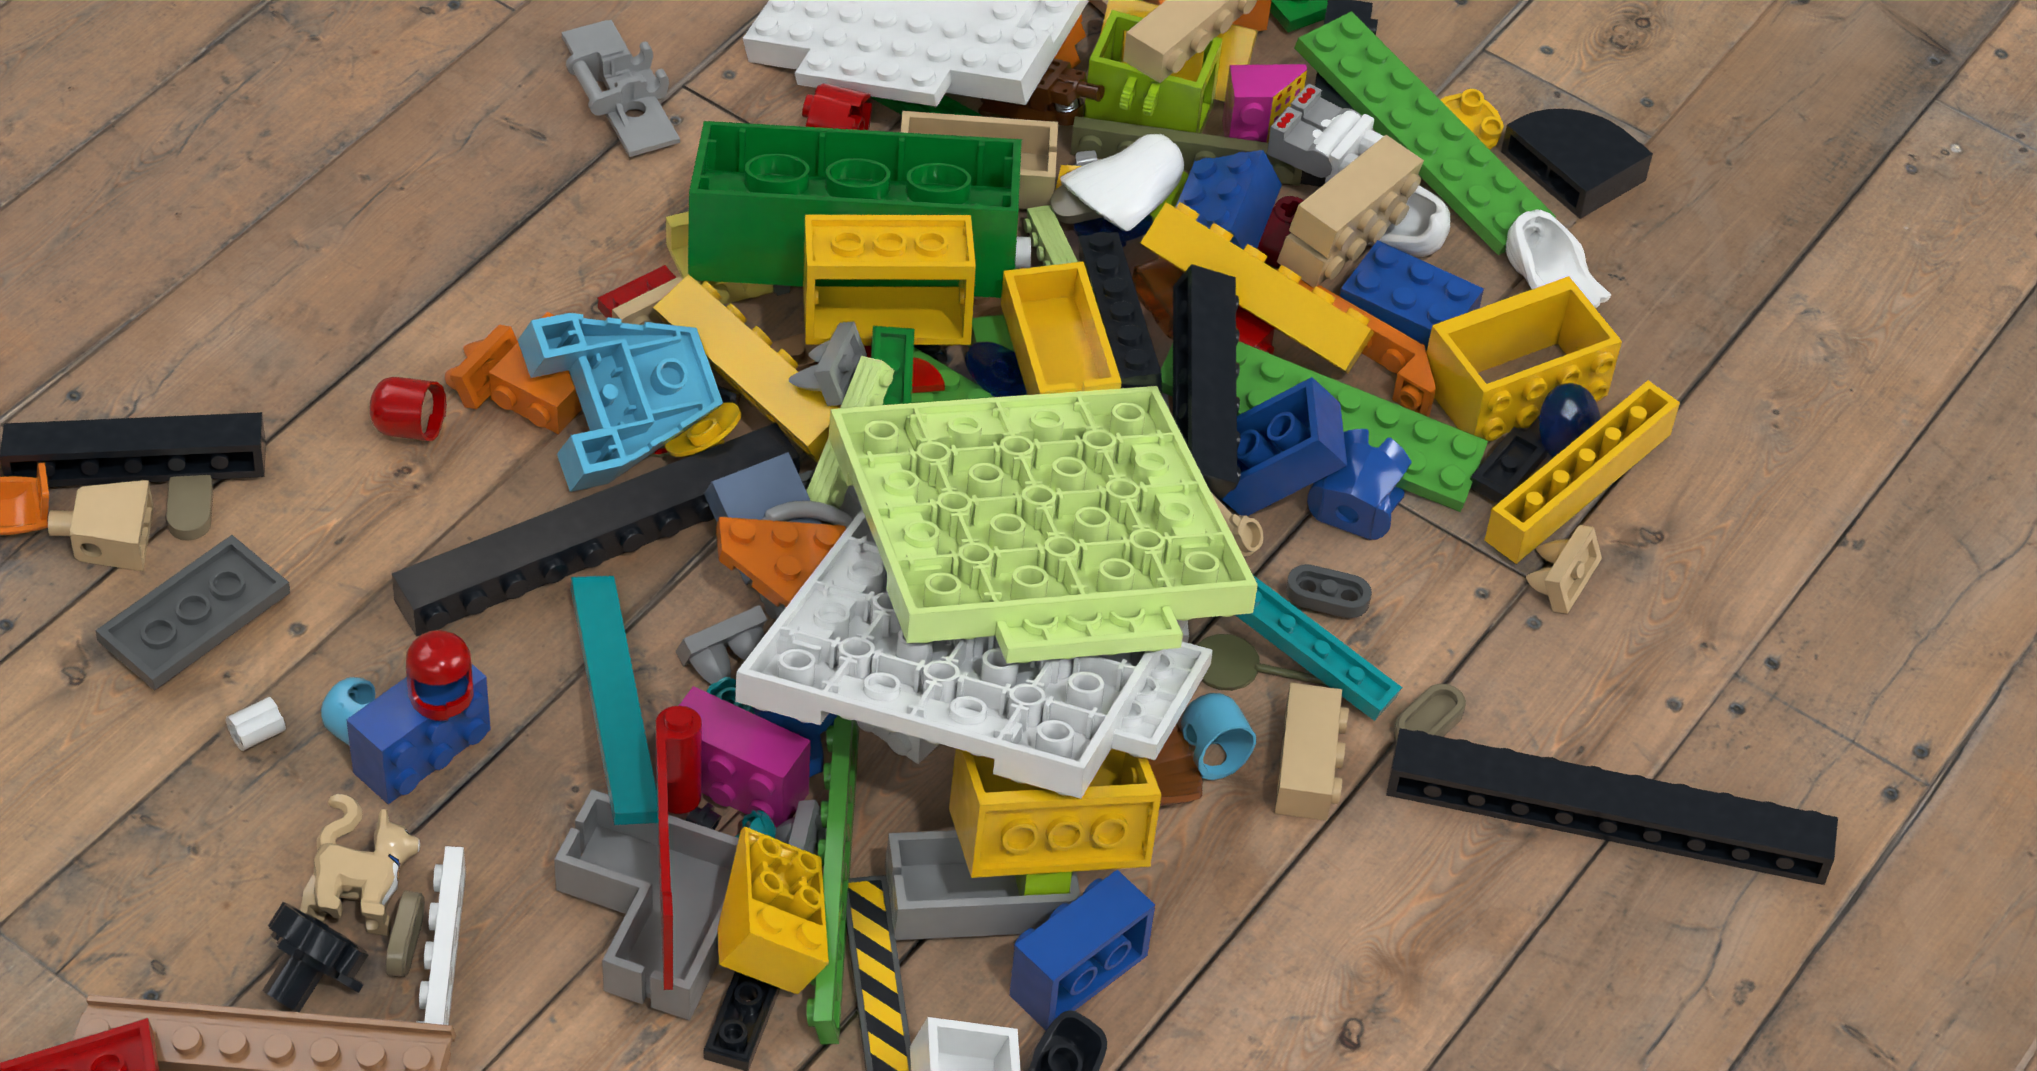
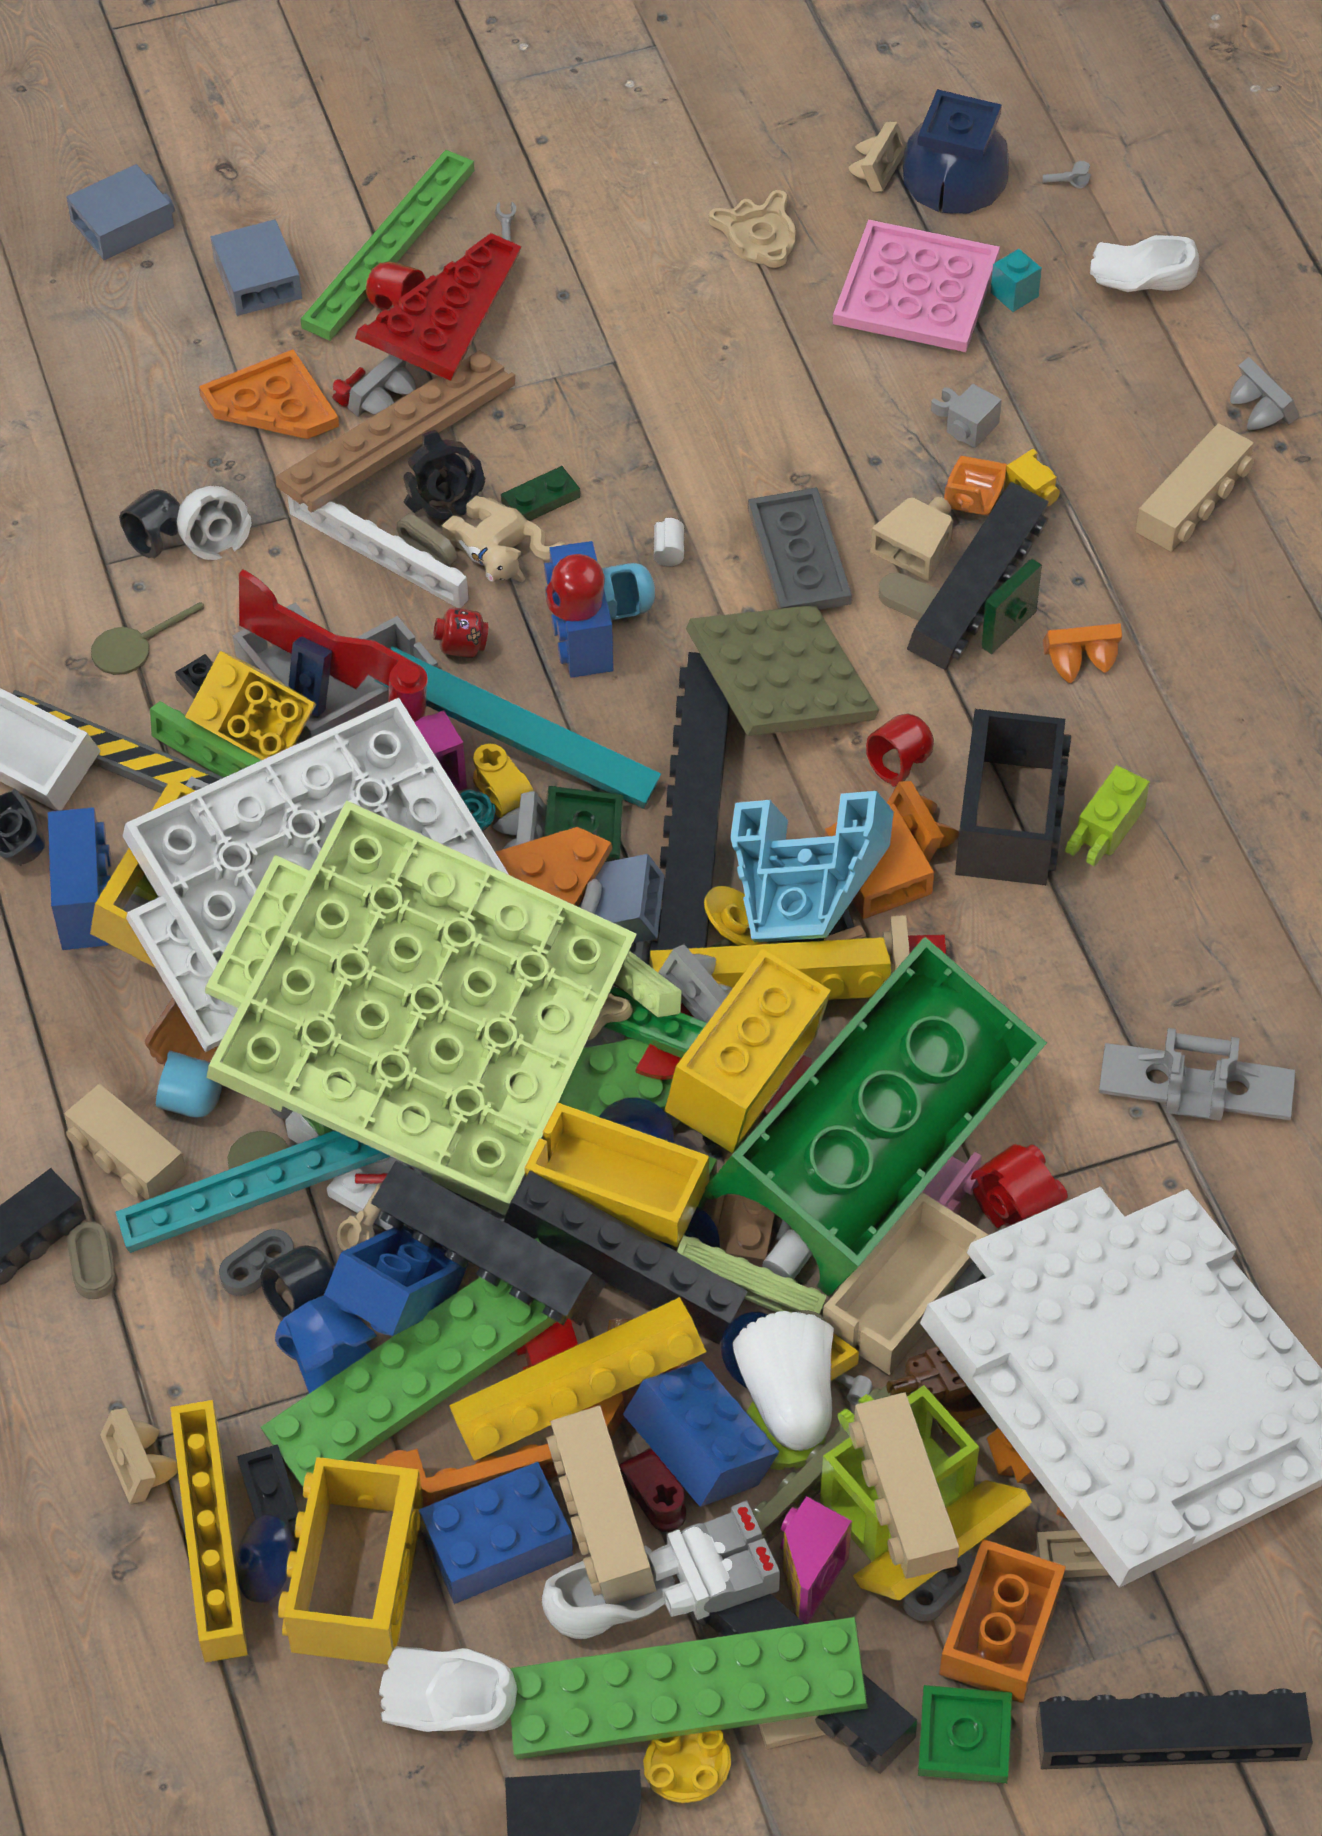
camera: 130 degrees right, 5 degrees up
(169, 344) = (1067, 646): none -> orange tile
(170, 387) = (1011, 606): none -> dark green plate
(255, 879) = (542, 494): none -> dark green plate
(379, 533) = (782, 670): none -> olive plate
(382, 236) = (1110, 814): none -> lime hinge
(424, 323) = (1019, 742): none -> black hose
(512, 829) = (461, 632): none -> red head
(675, 683) = (499, 778): none -> yellow piece
(676, 606) = (588, 810): none -> dark green plate
(692, 886) = (310, 672): none -> dark blue plate
(1319, 539) = (305, 1274): none -> black helmet

